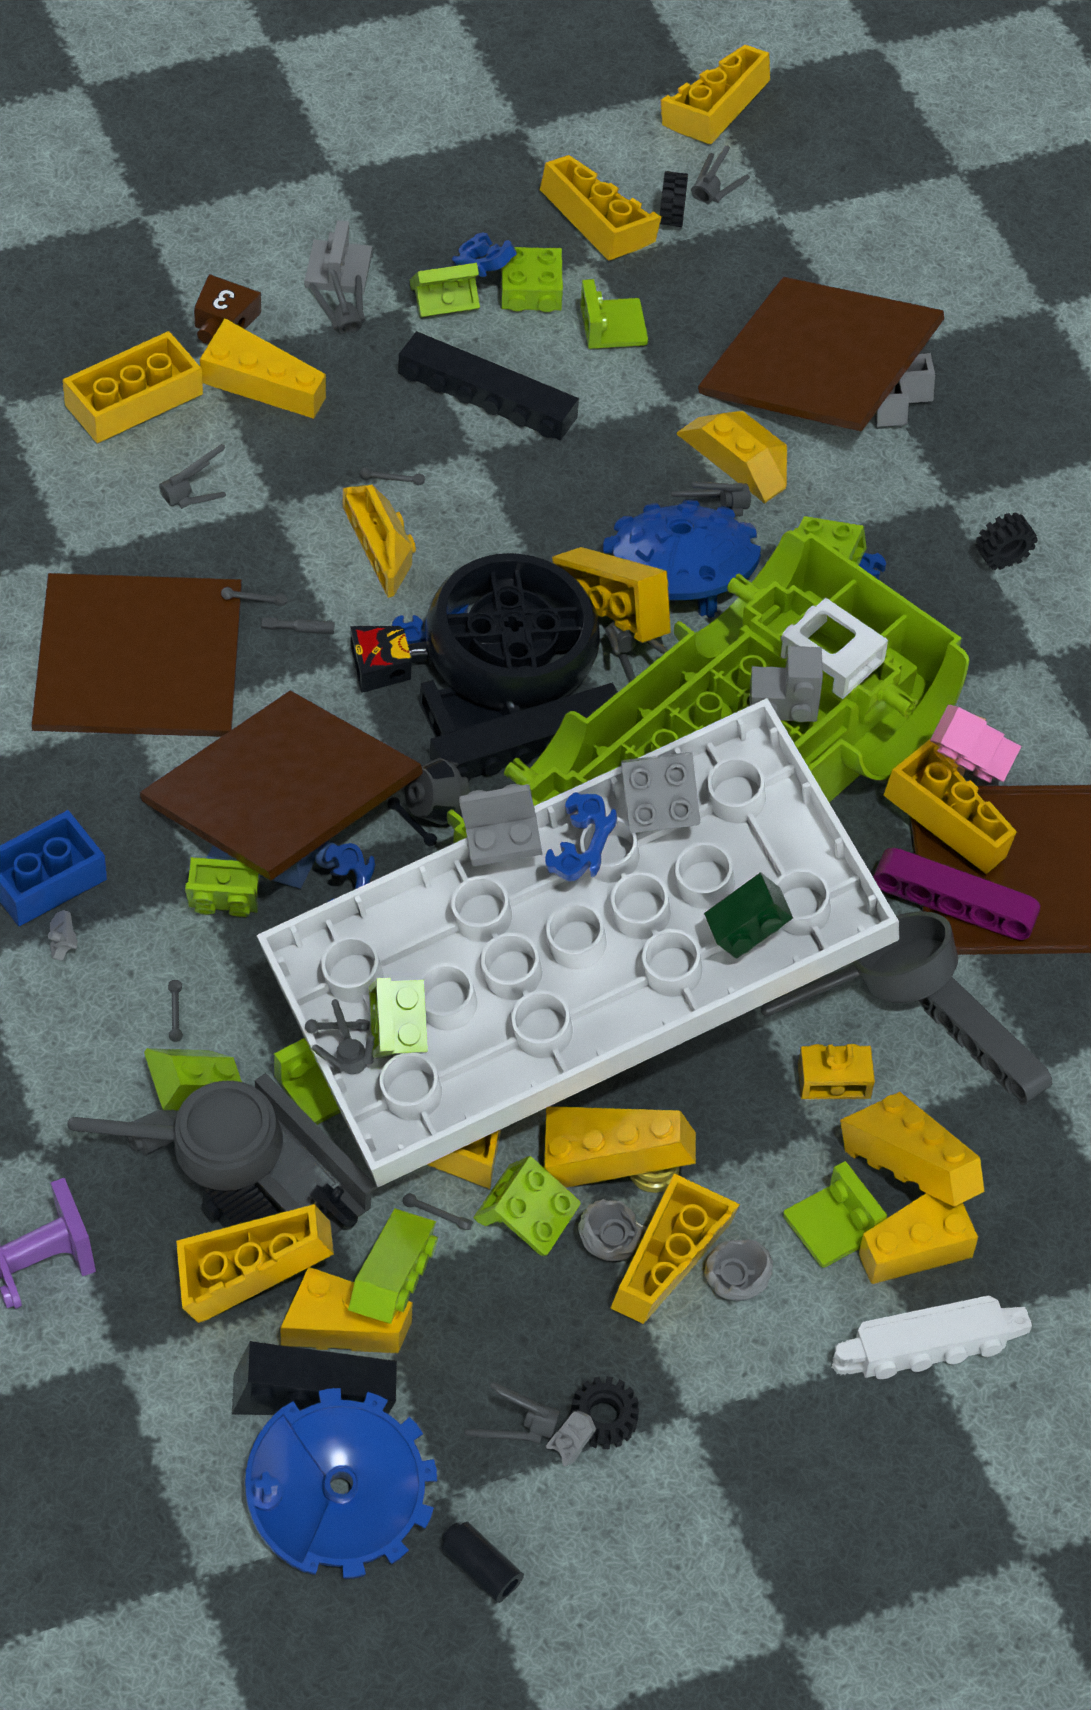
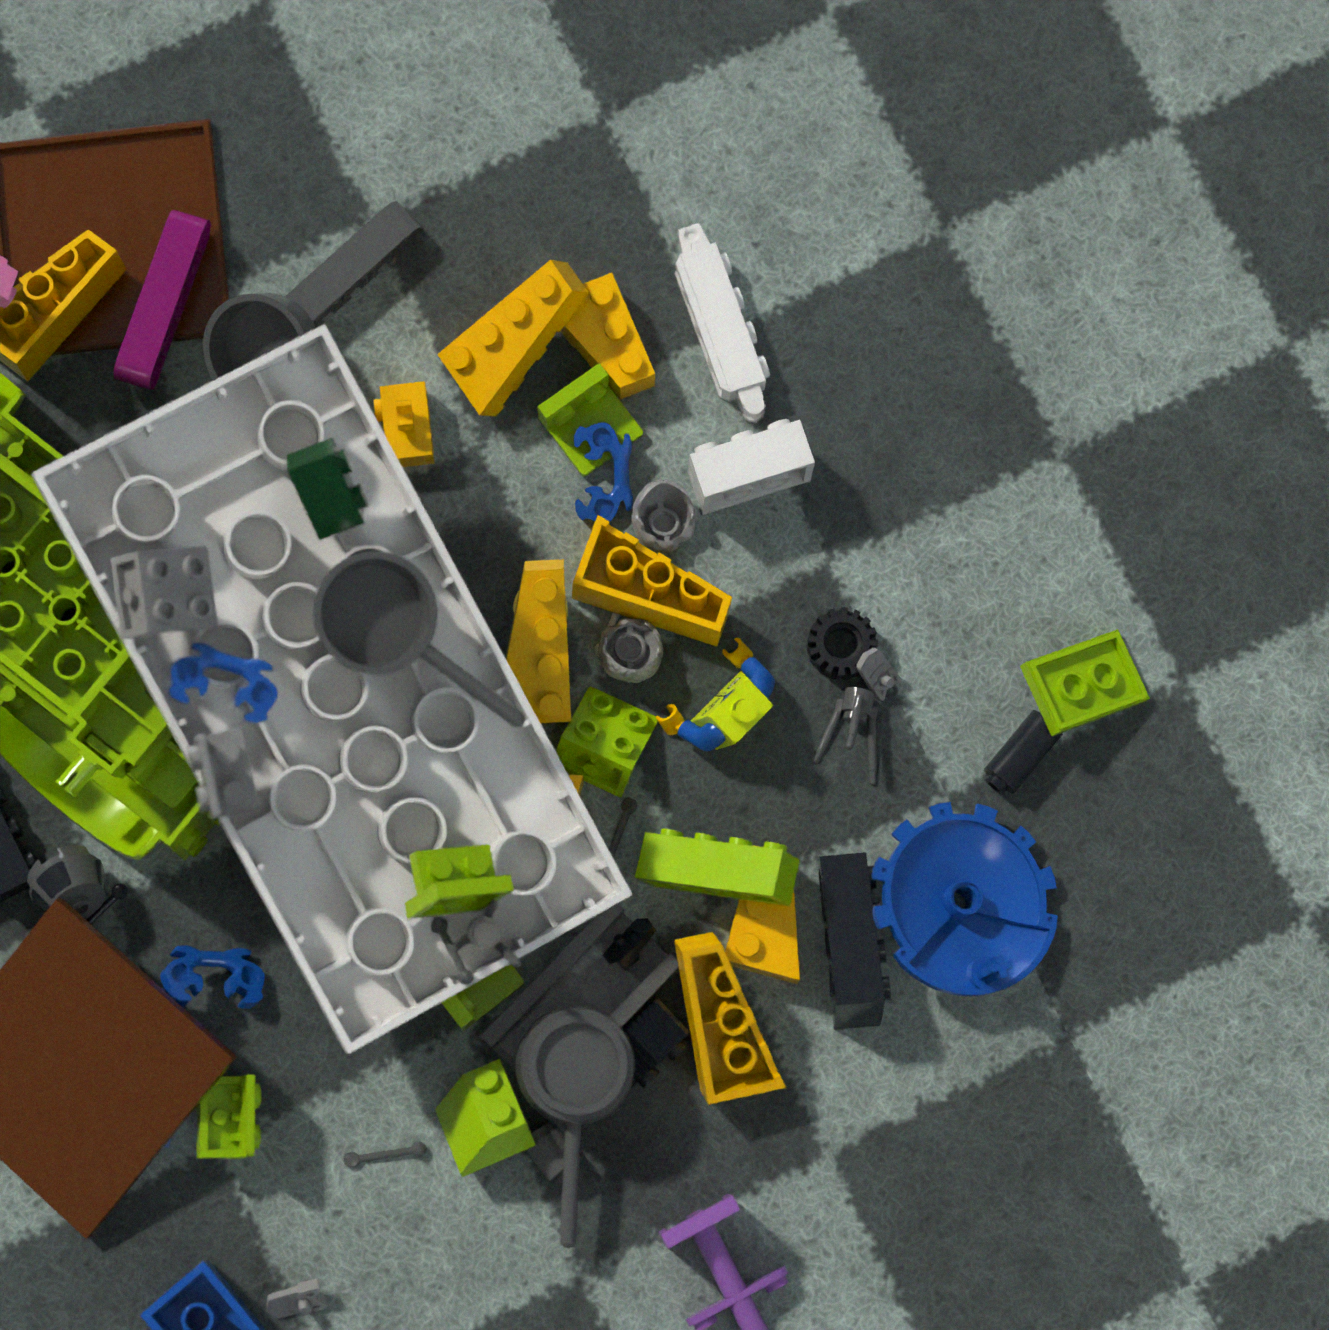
camera: 95 degrees left, 25 degrees up
(547, 1623) = (1084, 682): none -> lime tile
(549, 1307) = (731, 710): none -> torso
(631, 950) = (381, 616): none -> dark grey piece
(782, 1338) = (750, 465): none -> white brick
(814, 1223) = (601, 439): none -> blue helmet

